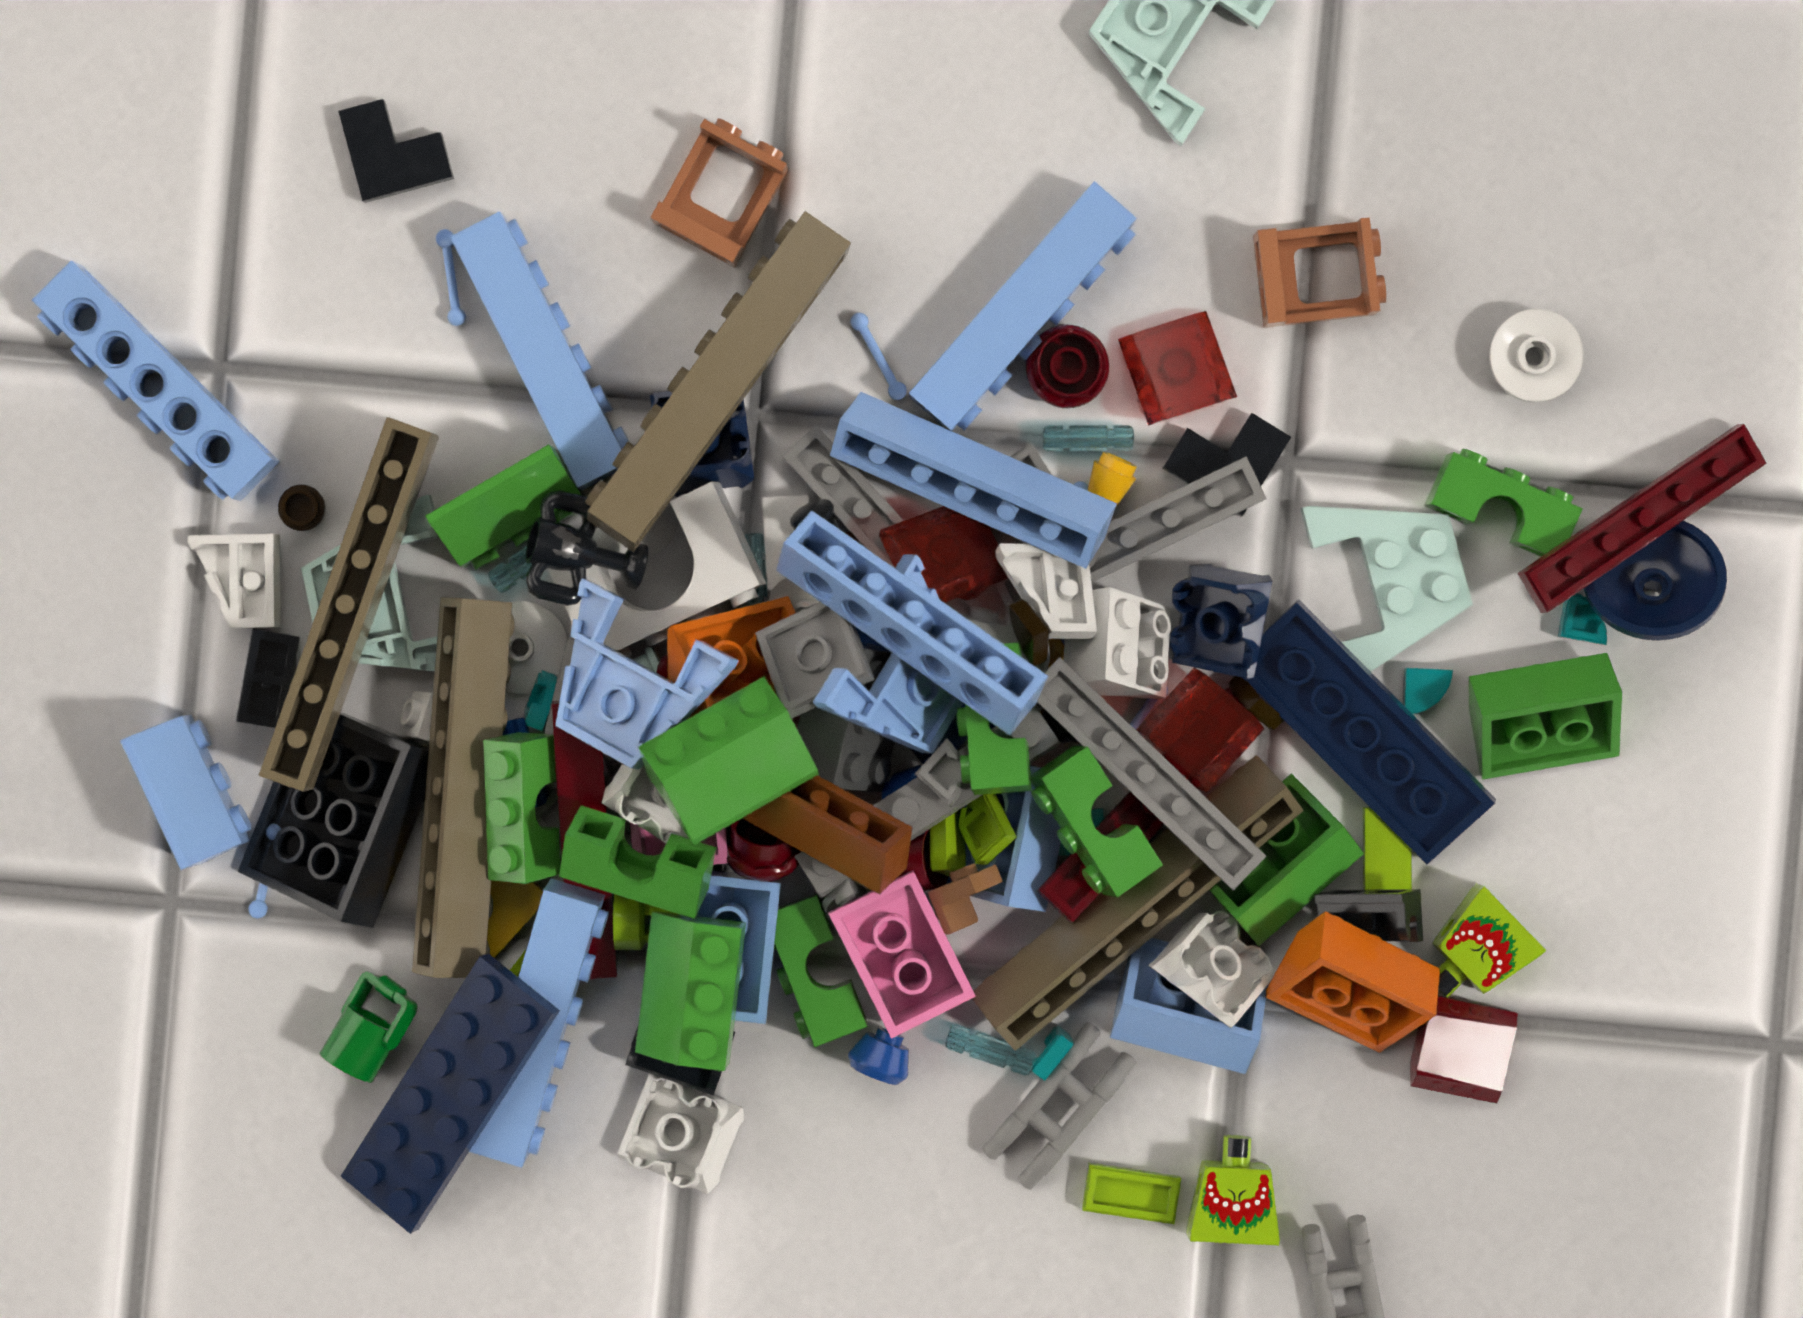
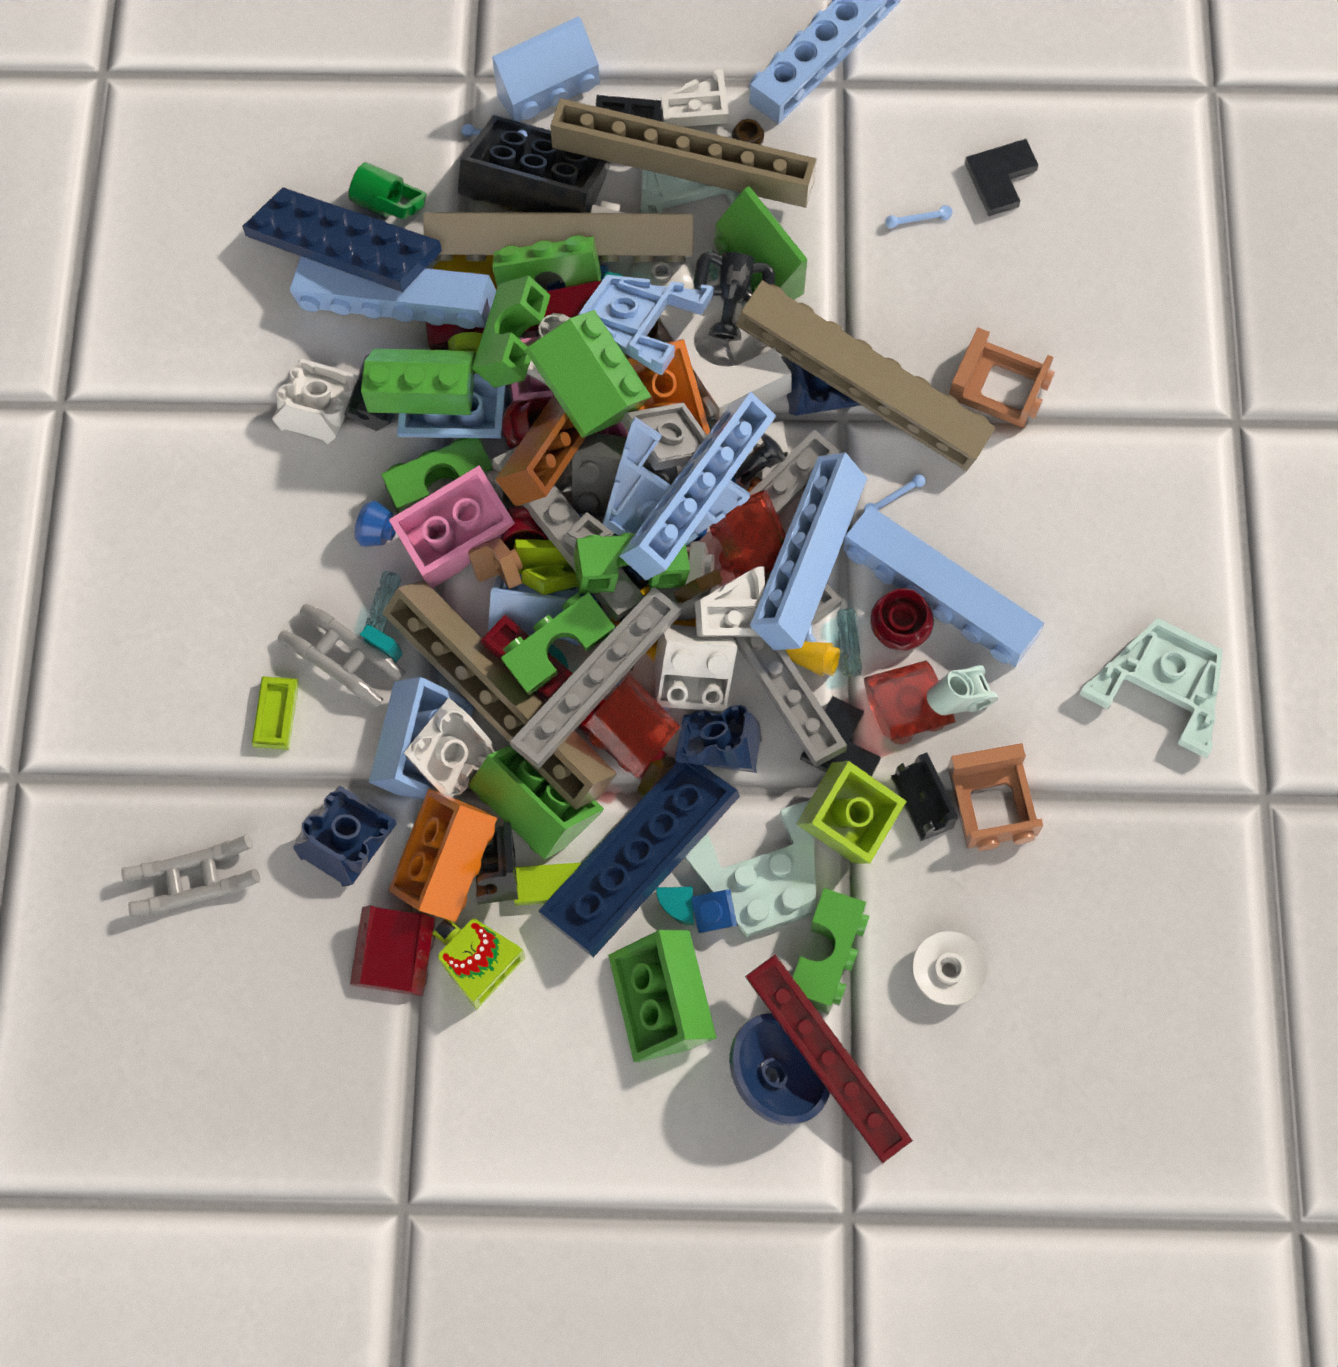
camera: 90 degrees right, 20 degrees down
(540, 348) = (883, 265): light blue brick -> none
(1175, 300) = (961, 692): none -> light aqua piece
(1234, 1199) = (271, 784): lime torso -> none
(1306, 1106) = (343, 835): none -> dark blue slope
(1311, 363) = (925, 797): none -> black hinge
(1336, 459) = (851, 812): none -> lime brick
(1442, 643) = (714, 911): none -> blue plate
(1581, 622) = (735, 1019): teal tile -> none

